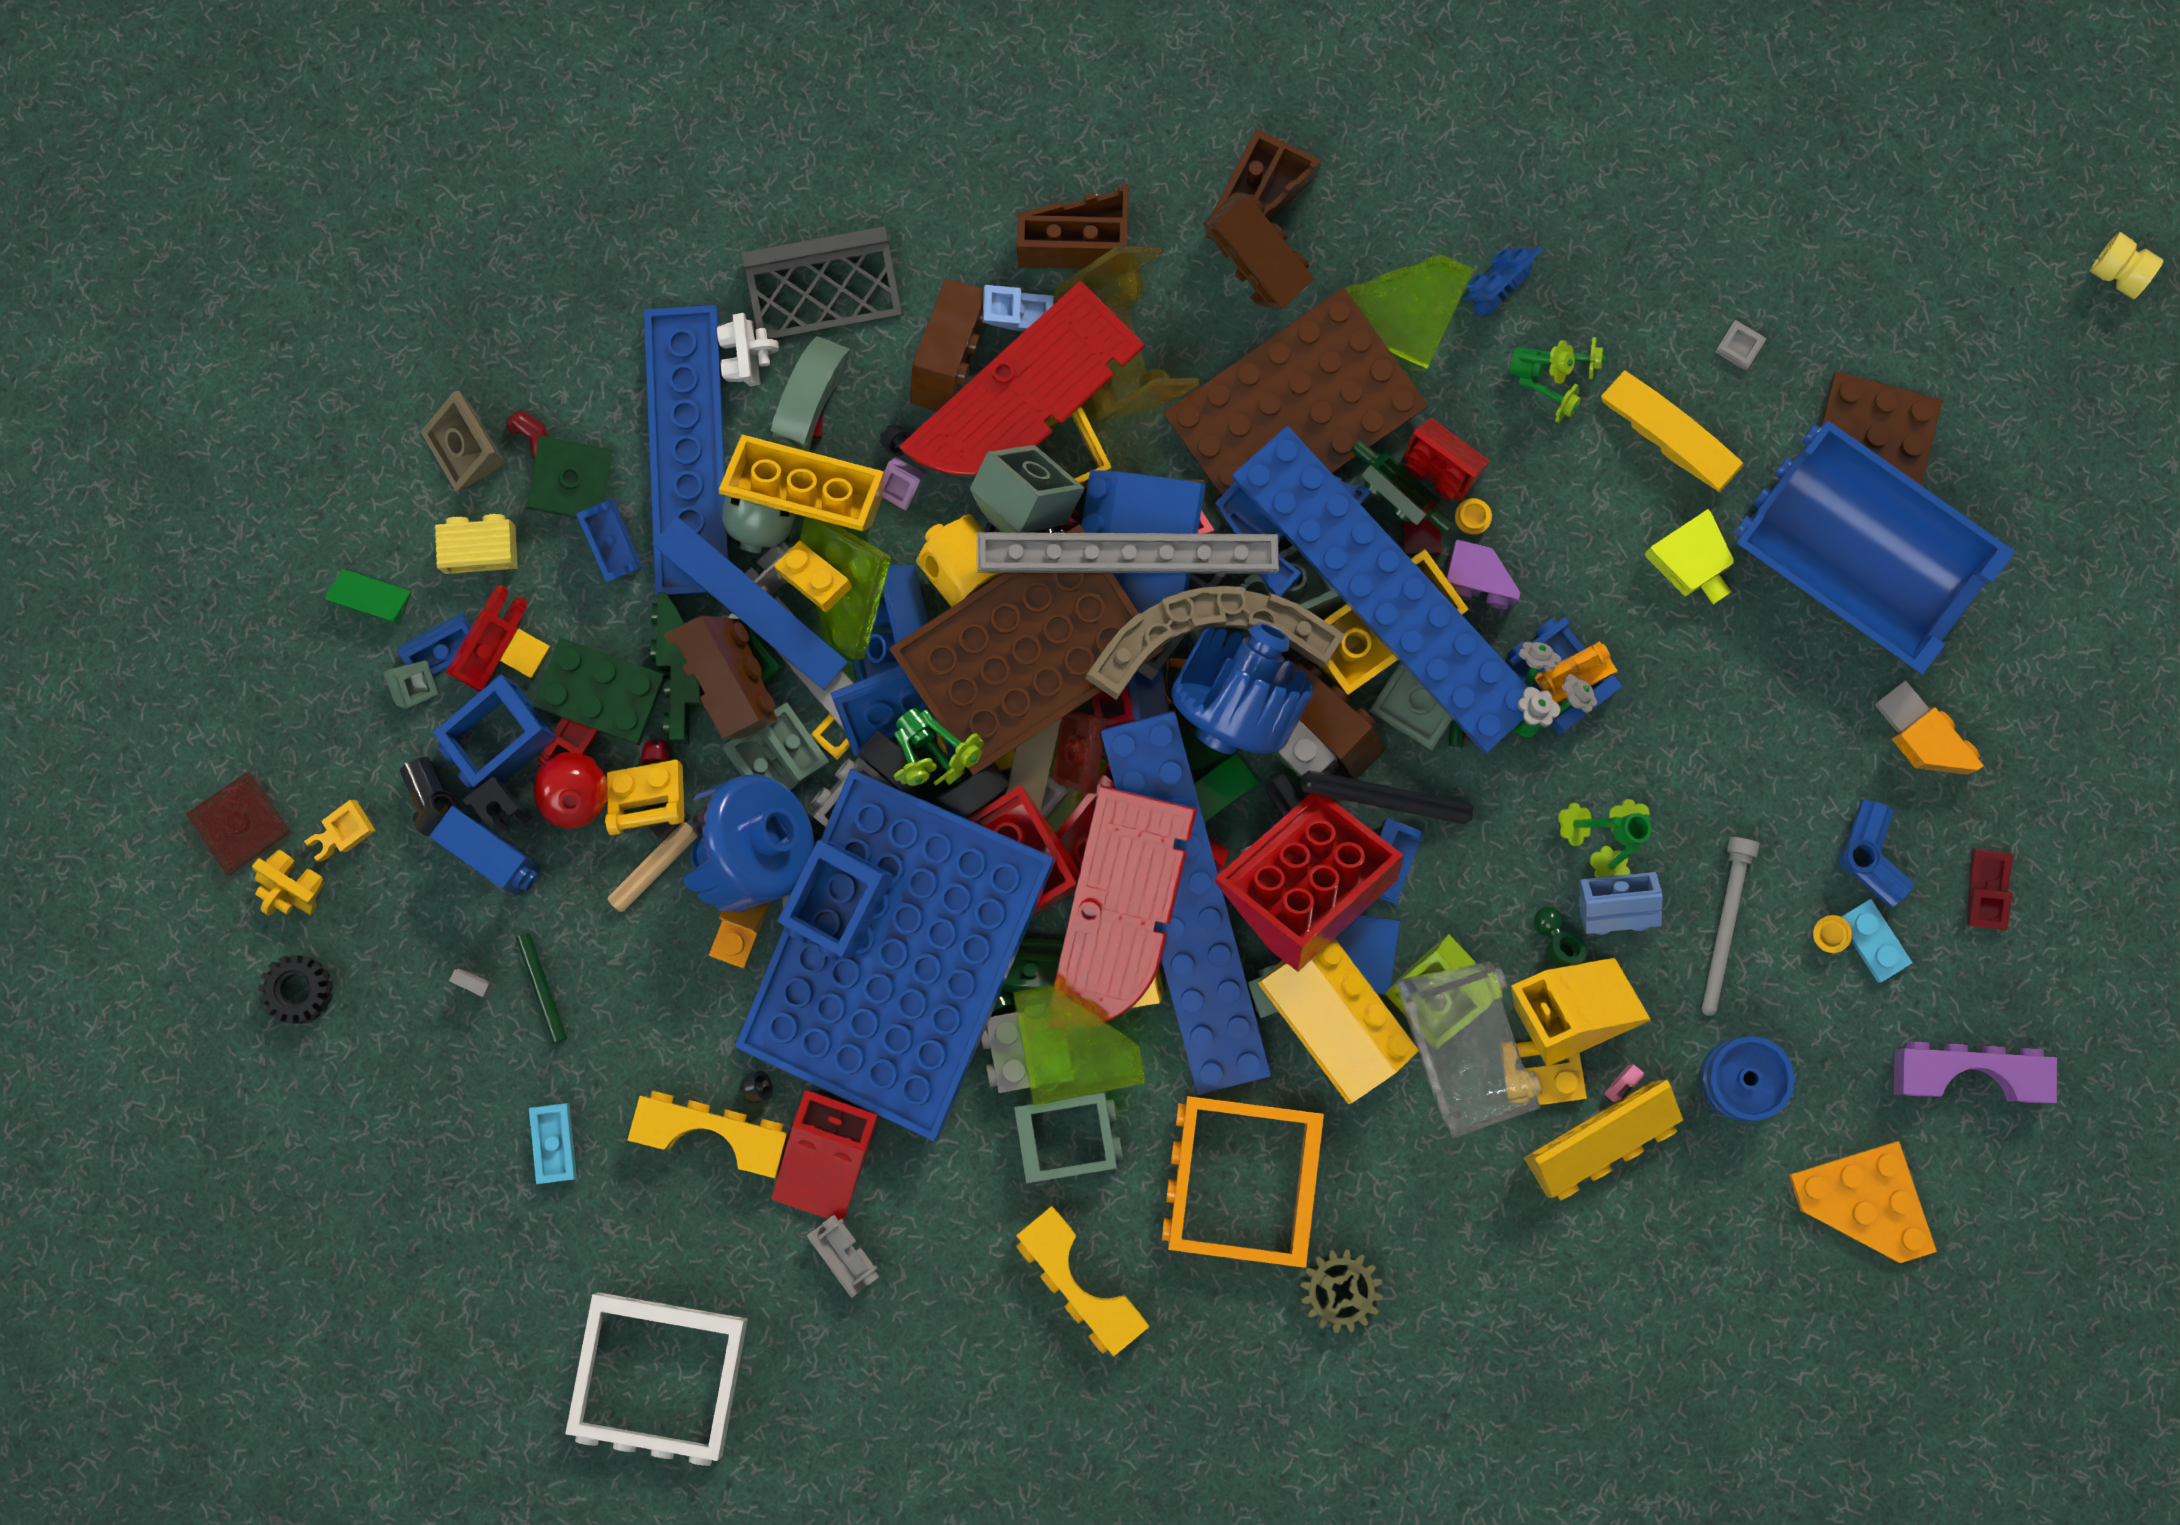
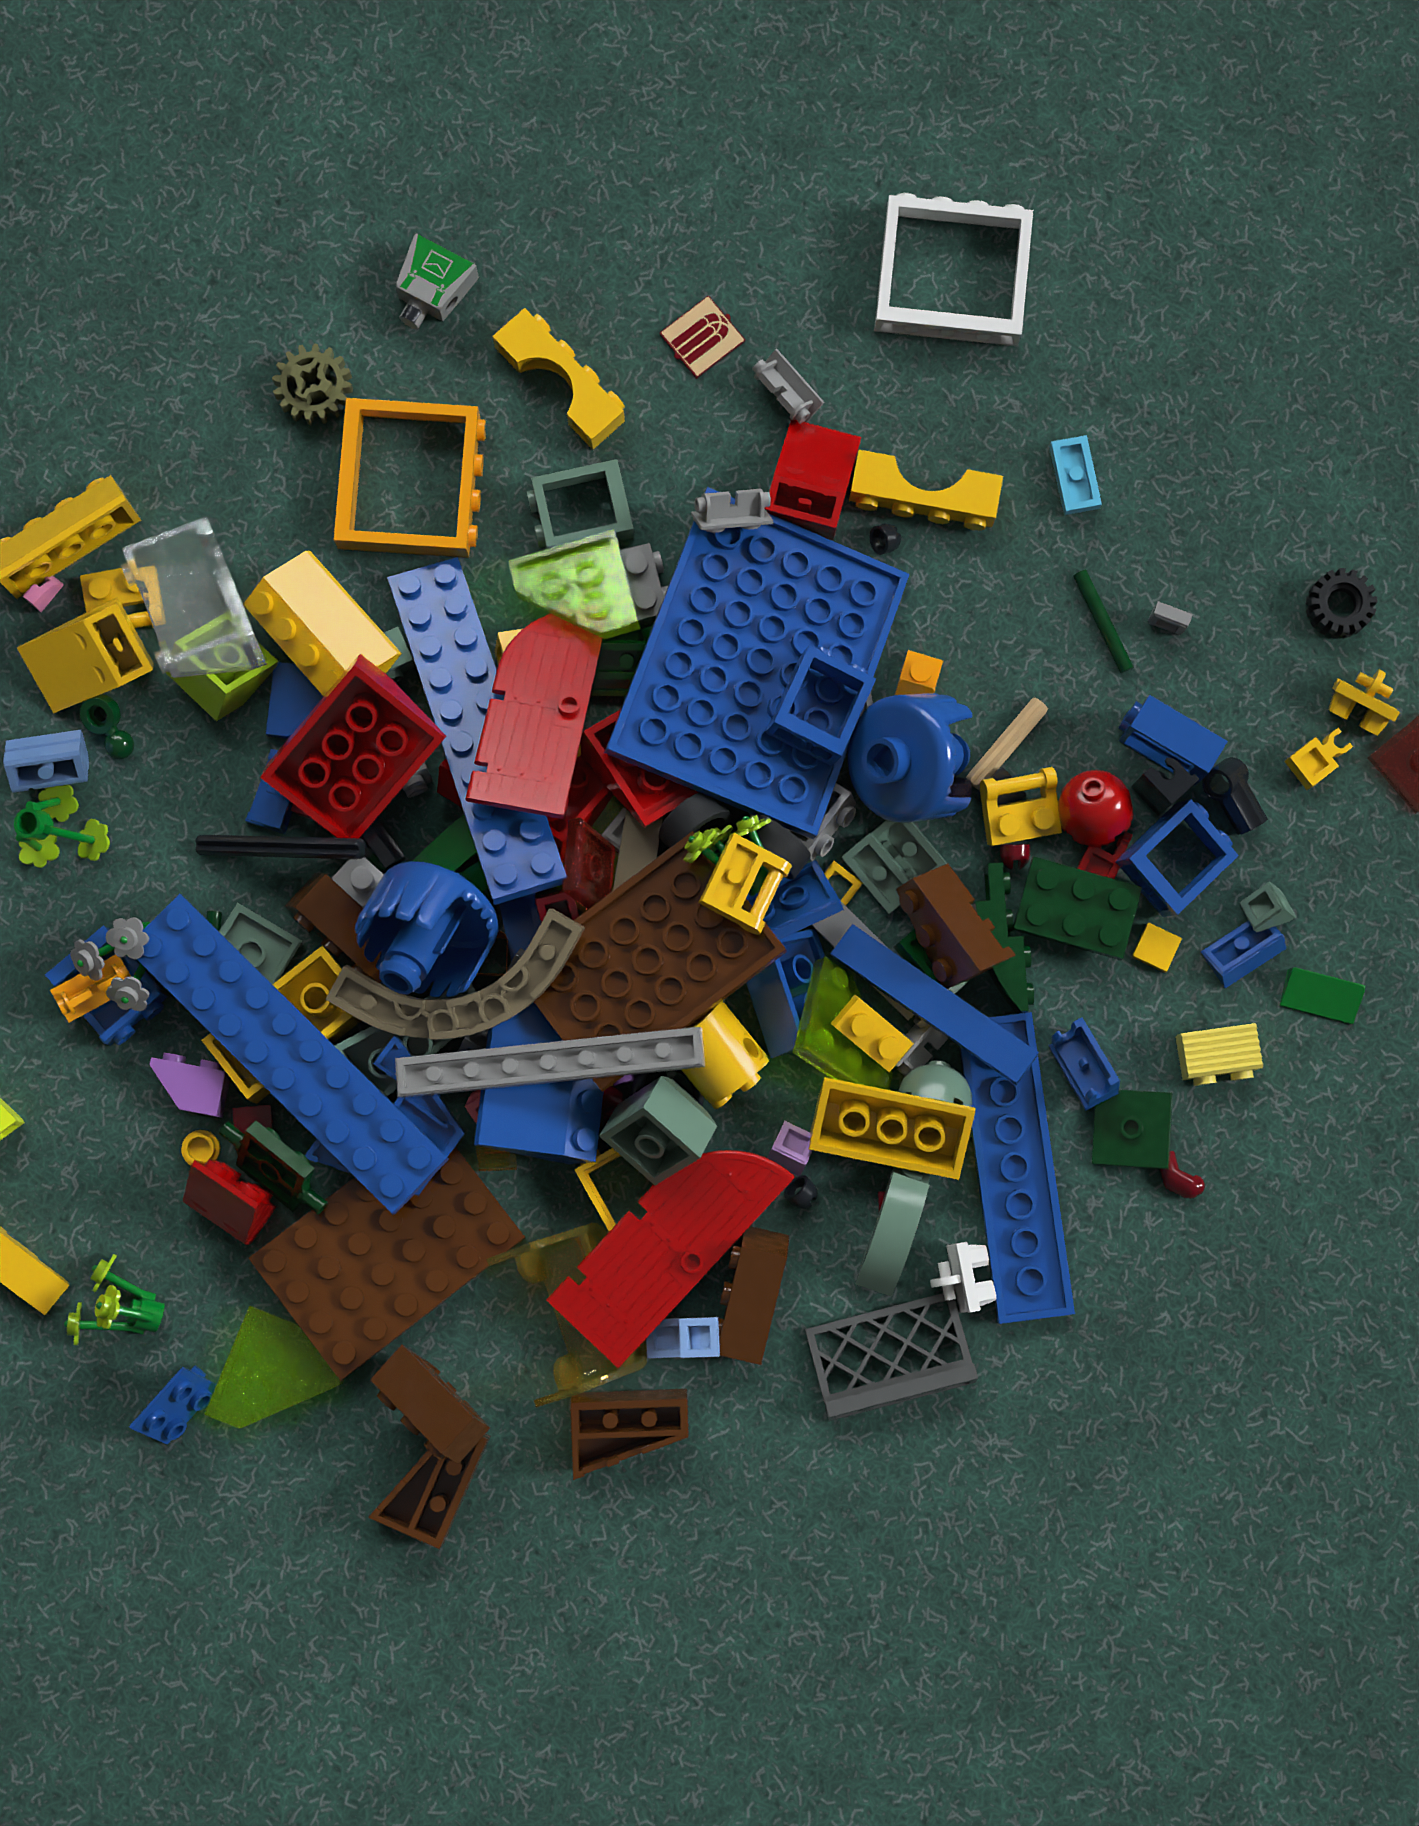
camera: 170 degrees right, 0 degrees up
(461, 443) = (1246, 1160): dark tan slope -> none
(487, 641) = (1196, 956): red hinge -> none
(922, 1104) = (716, 513): none -> light grey hinge
(929, 1322) = (702, 336): none -> piece
(933, 717) = (734, 878): none -> yellow plate
(1211, 1397) = (432, 281): none -> torso

